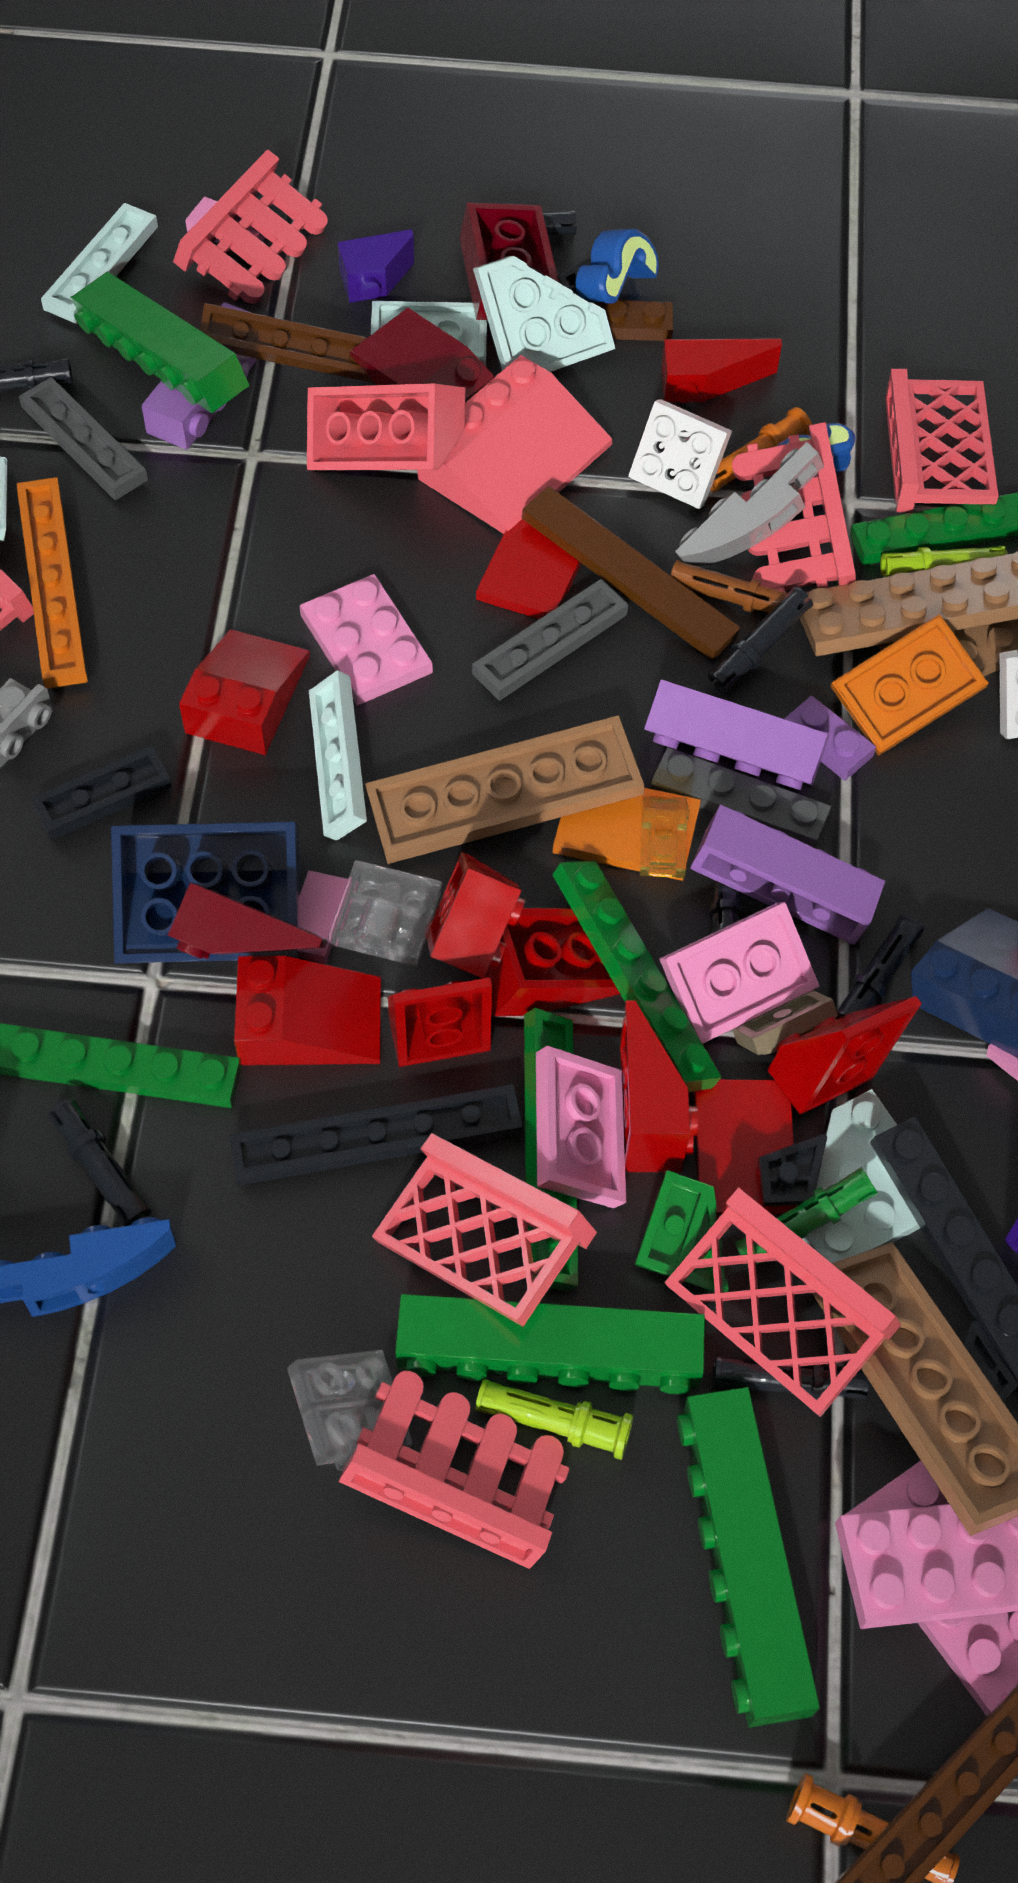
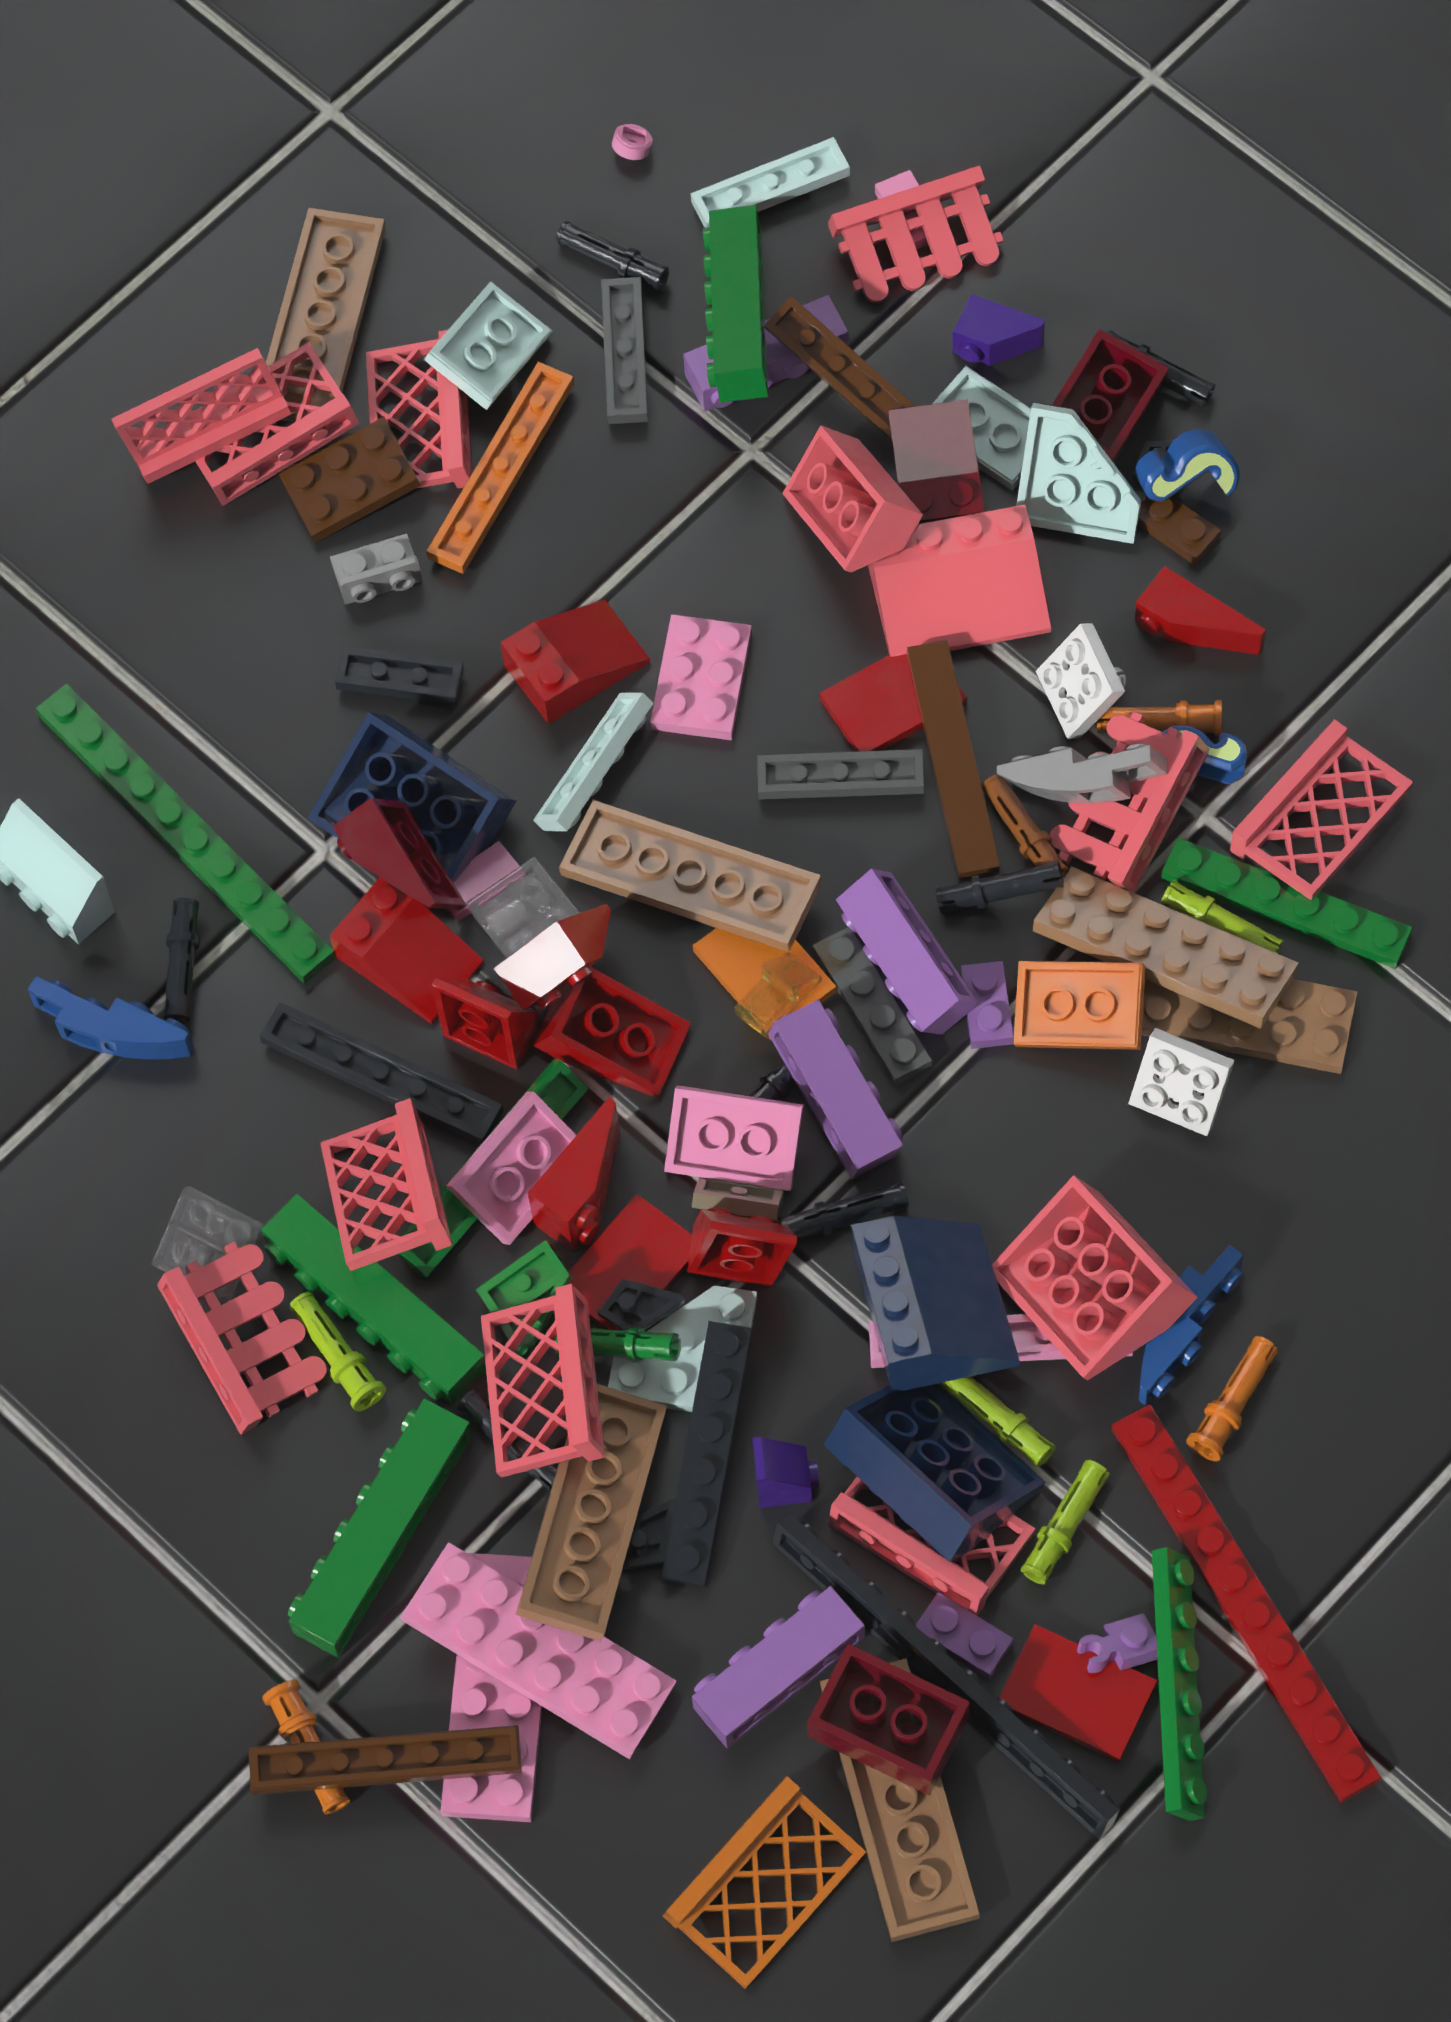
camera: 45 degrees right, 5 degrees up
(634, 969) = (659, 1073): green plate -> none

